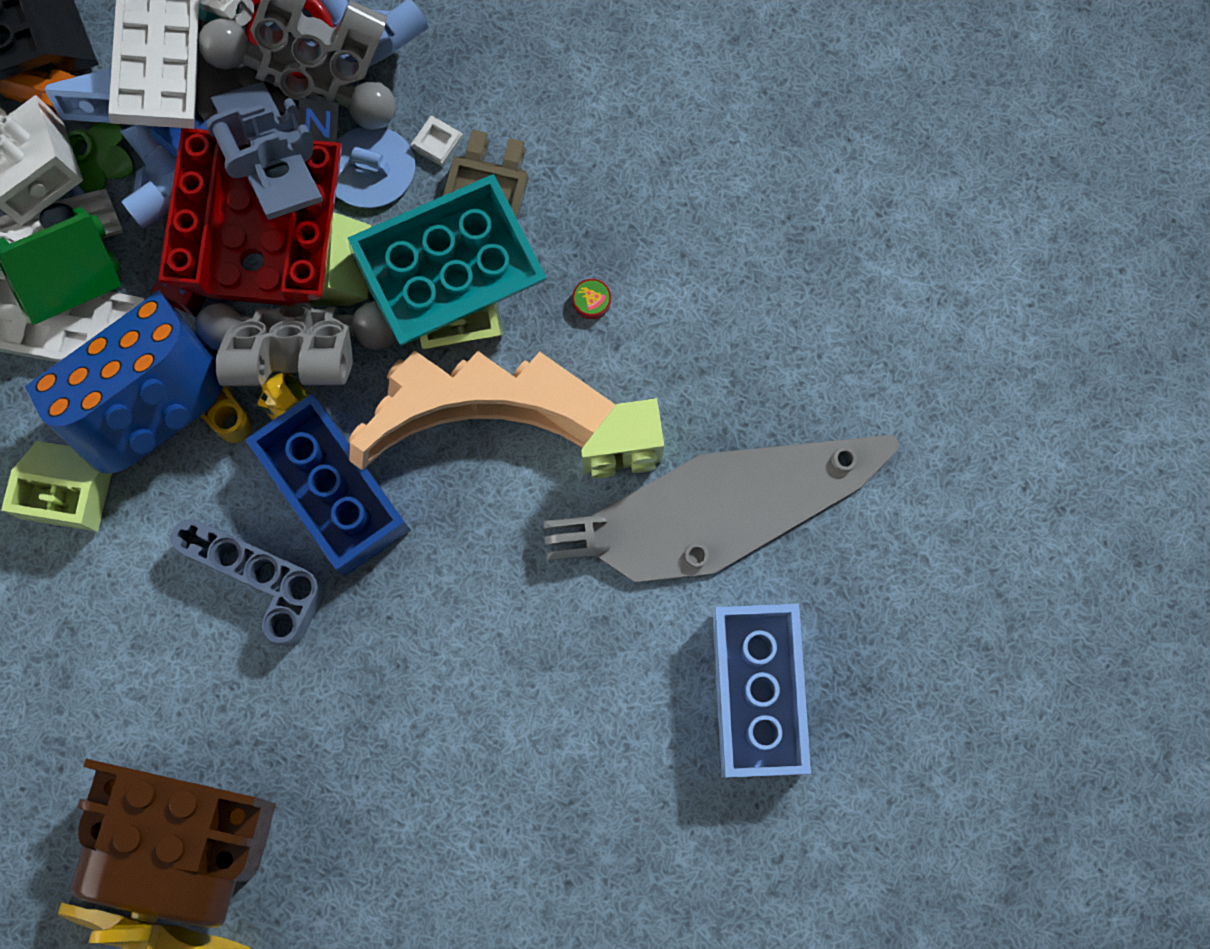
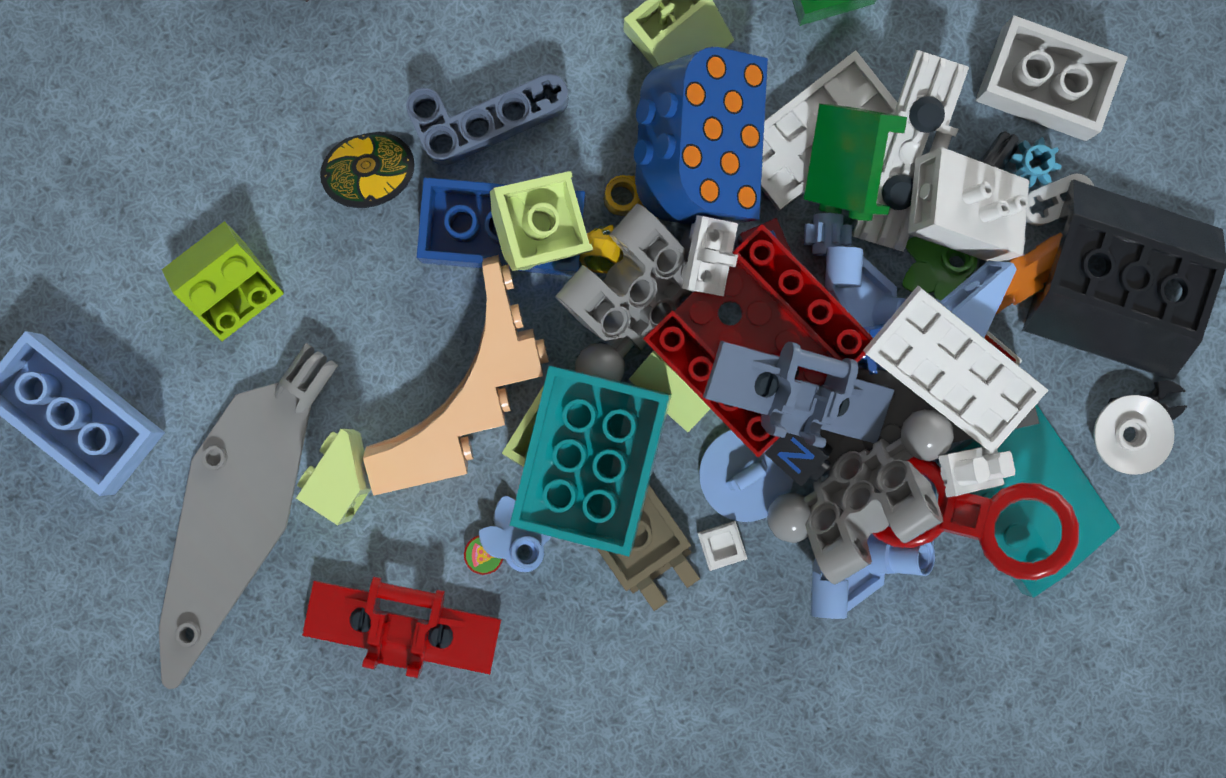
camera: 130 degrees right, 10 degrees up
(136, 248) = (827, 232): none -> light blue gear
(227, 295) = (715, 235): none -> white hips
(295, 445) = (538, 221): none -> yellowish green slope
(370, 629) = (367, 170): none -> shield
(554, 668) = (221, 281): none -> lime slope
(558, 290) = (504, 540): none -> light blue plate
(708, 303) = (399, 640): none -> red piece

